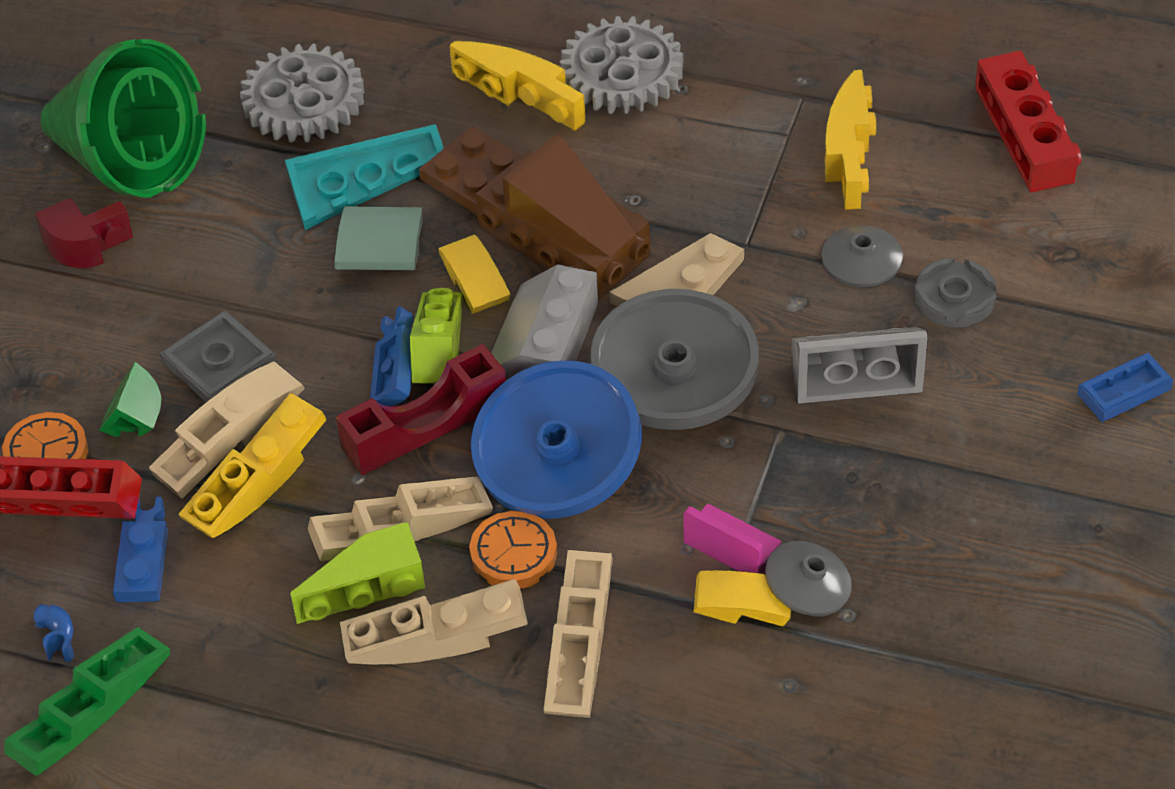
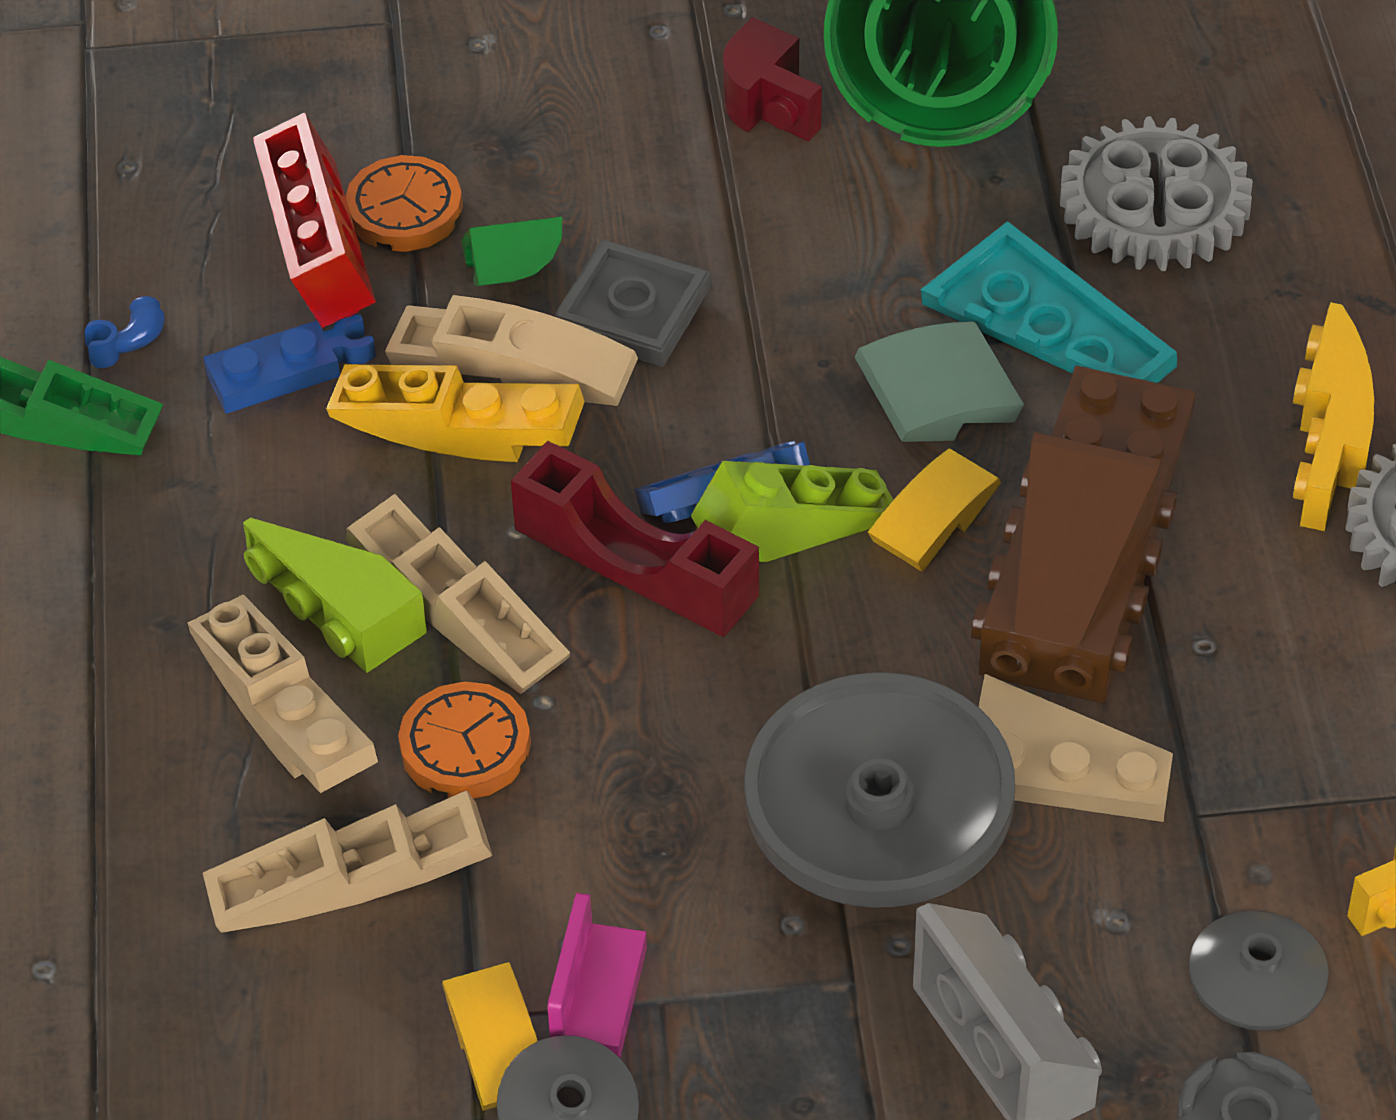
camera: 65 degrees right, 0 degrees up
(547, 319) = (869, 626): light grey slope -> none
(556, 439) = (655, 705): blue dish -> none

